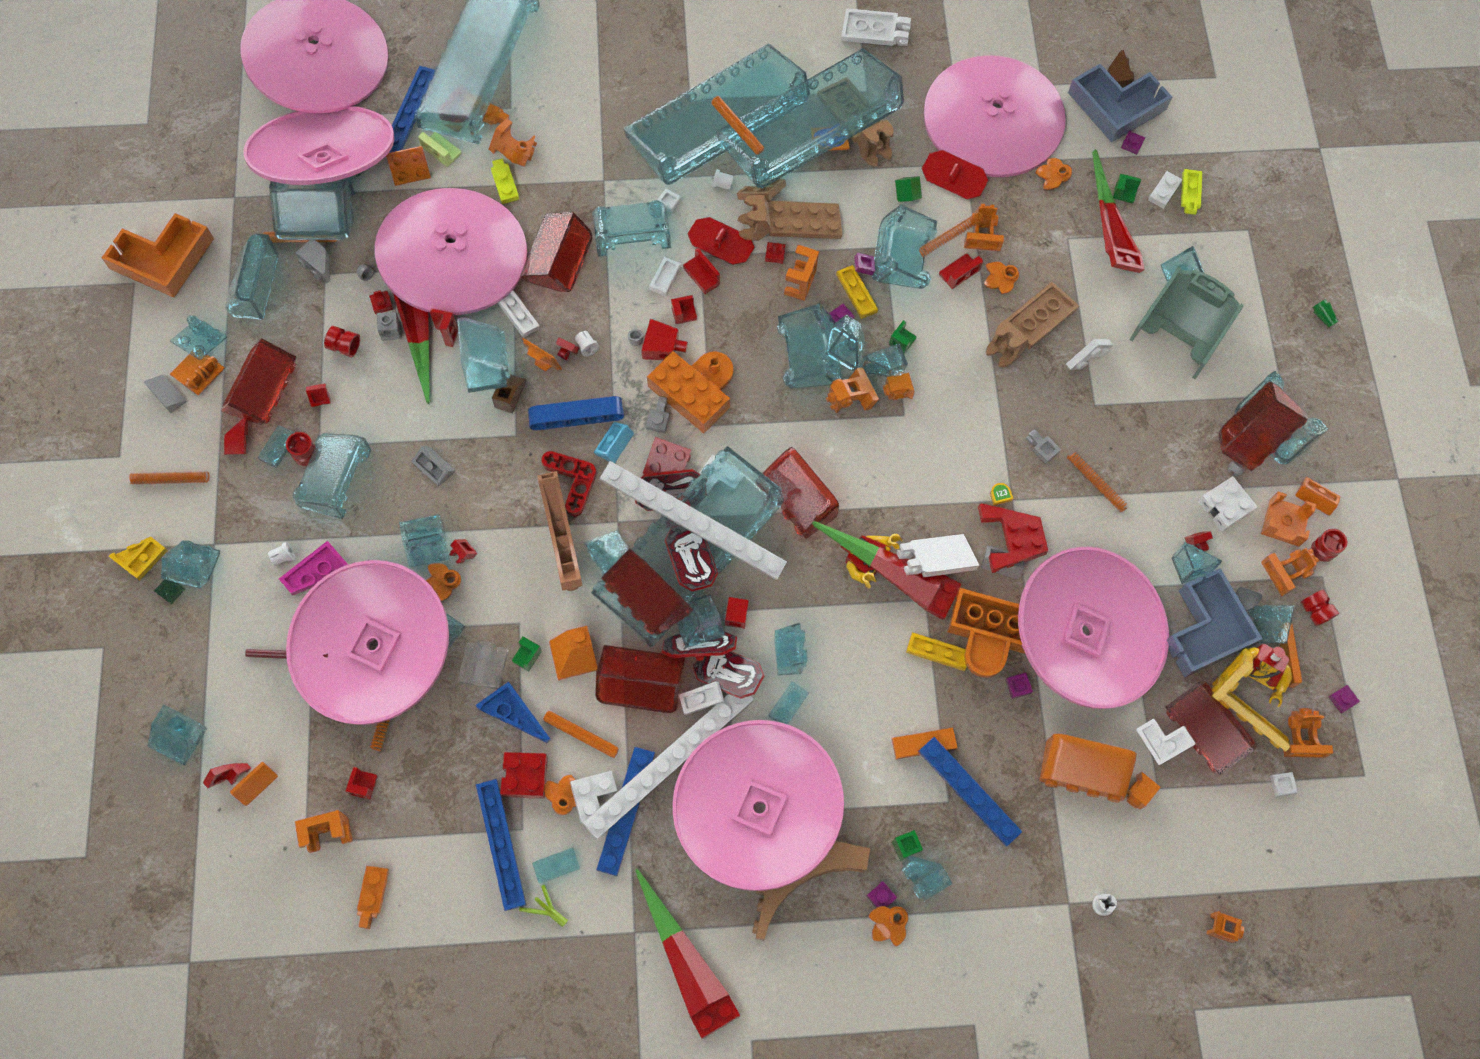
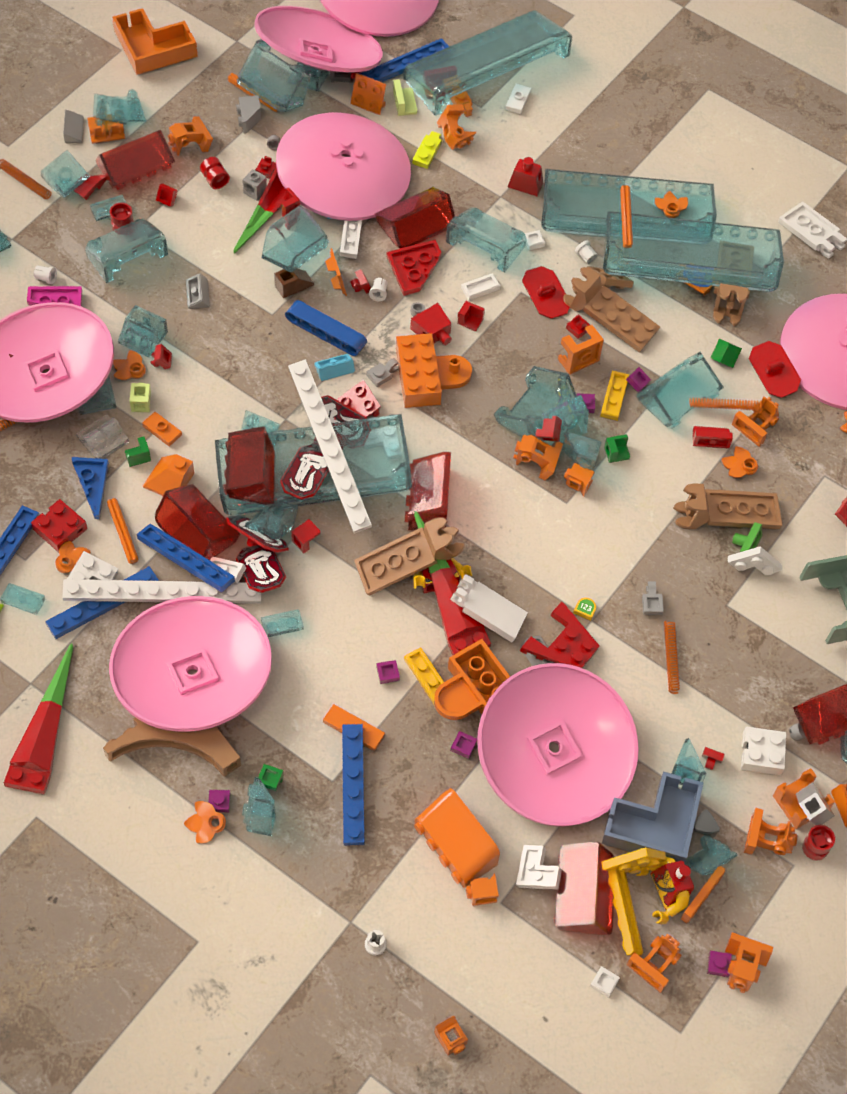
camera: 40 degrees right, 10 degrees down
(186, 351) = (109, 109): none -> clear light blue hinge
(208, 446) = (64, 174): none -> clear light blue slope
(252, 278) = (197, 94): clear light blue windscreen -> none
(280, 330) = (183, 133): none -> orange tile
(486, 607) = (140, 397): none -> yellowish green brick
(524, 615) = (162, 428): none -> orange plate
(535, 77) = (518, 98): none -> white plate
(560, 531) = (232, 398): nougat arch -> none
(579, 478) = (284, 371): red beam -> none
(594, 298) = (414, 265): none -> red plate
(613, 147) = (527, 177): none -> red torso
(661, 715) = (186, 557): none -> blue plate
(702, 272) = (509, 302): red panel -> none
(747, 86) = (671, 205): none -> orange plate
(789, 650) = (317, 588): clear light blue slope -> none
(838, 567) = (408, 555): none -> medium nougat hinge
(846, 363) = (550, 429): none -> red panel
(907, 674) = (388, 672): none -> magenta plate
(1067, 339) = (750, 541): none -> bright green tile
(1305, 518) = (814, 805): none -> light grey slope
(1319, 607) = (763, 881): red wheel -> none
(1371, 694) = (741, 971): none -> orange tile

